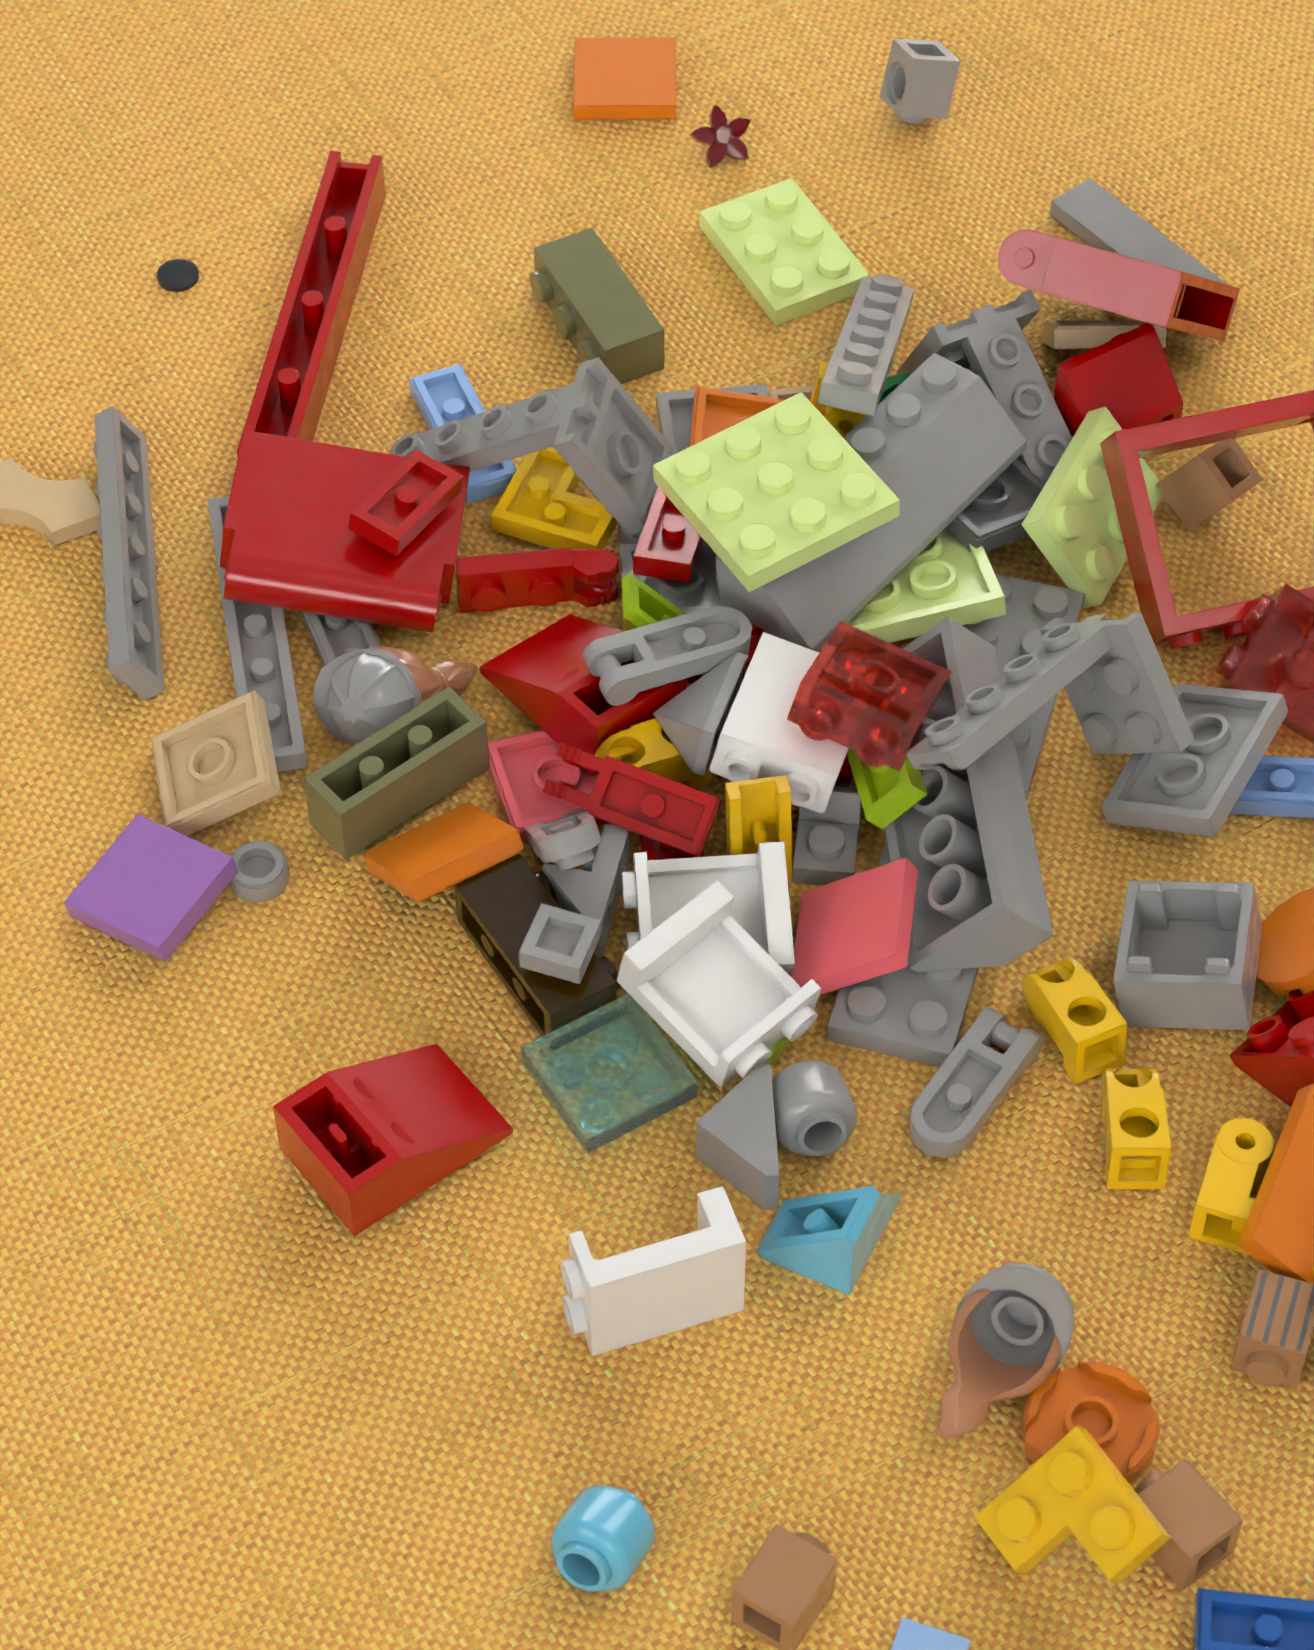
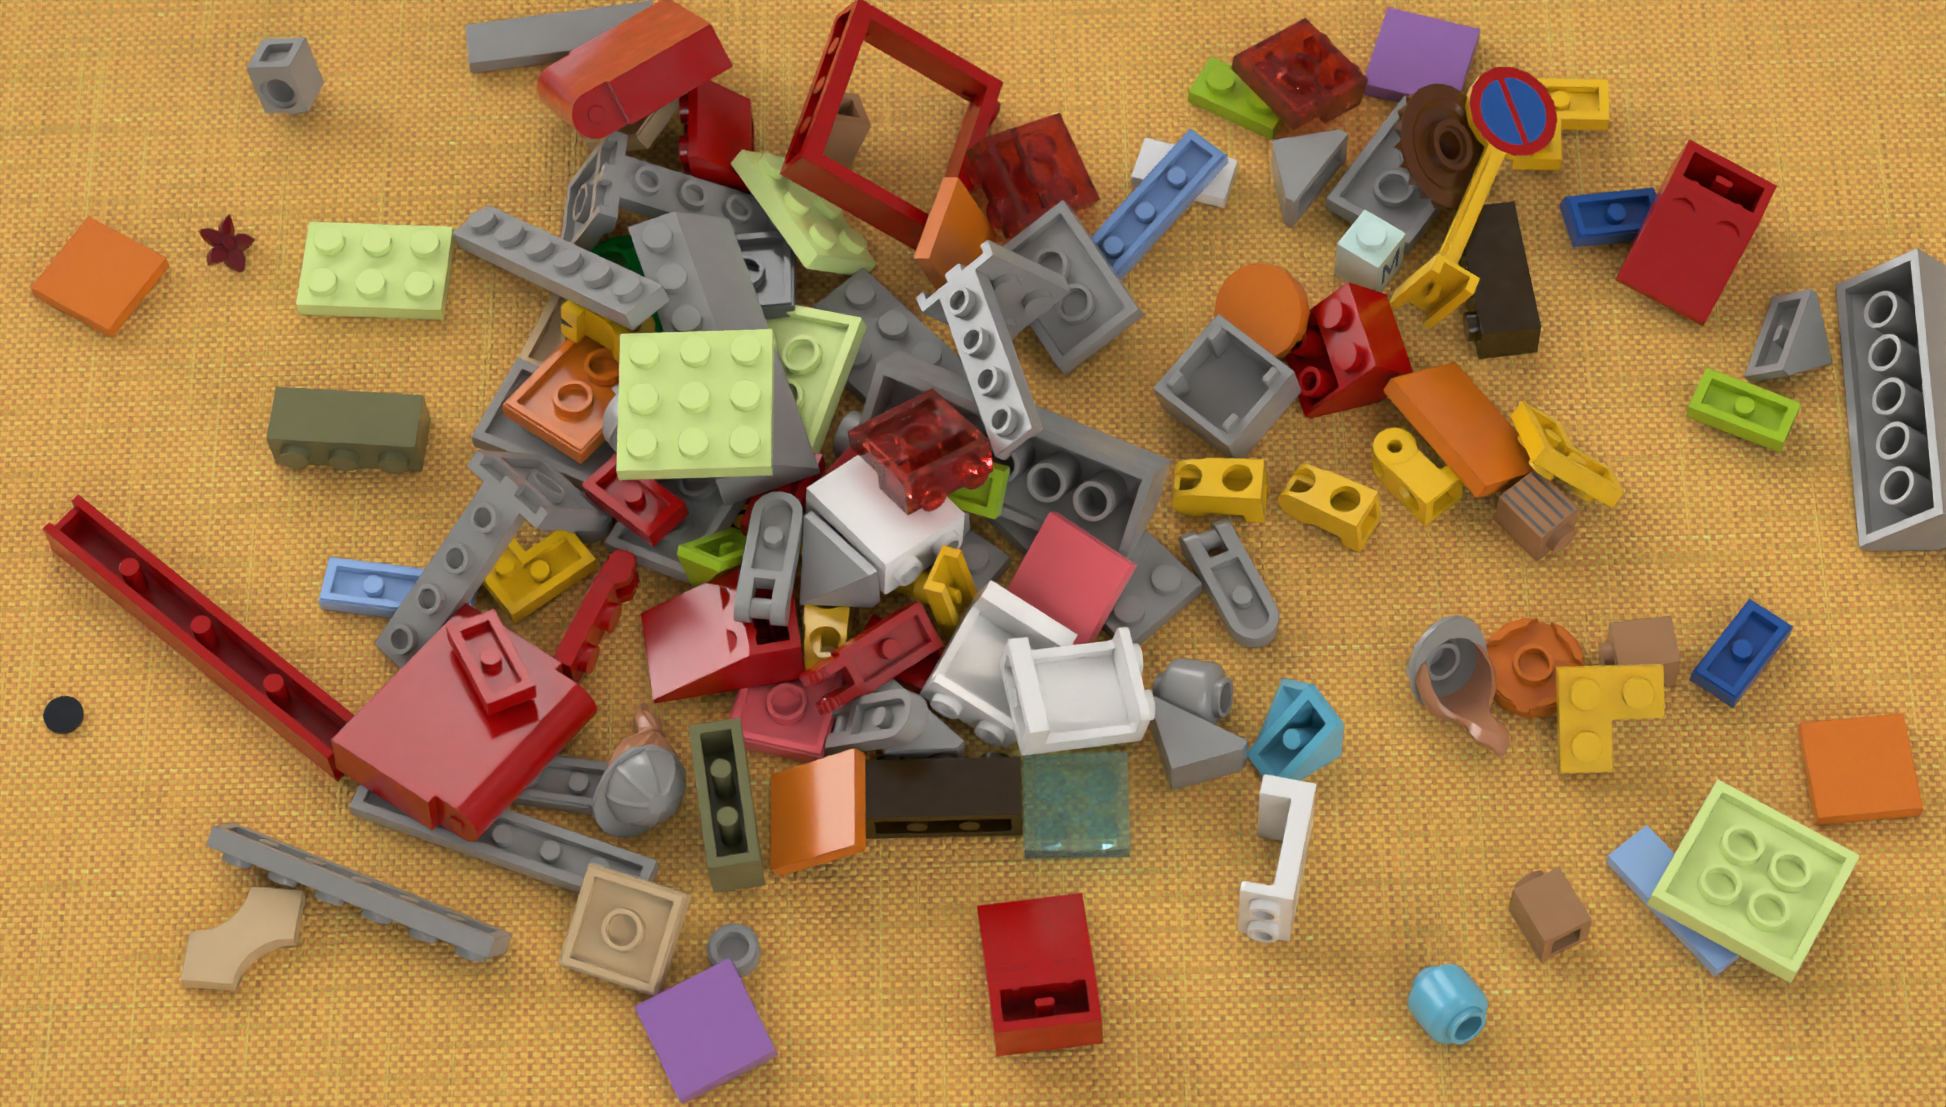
camera: 55 degrees left, 10 degrees up
(560, 943) = (975, 772): light grey plate -> none
(1181, 621) = (952, 232): none -> orange tile

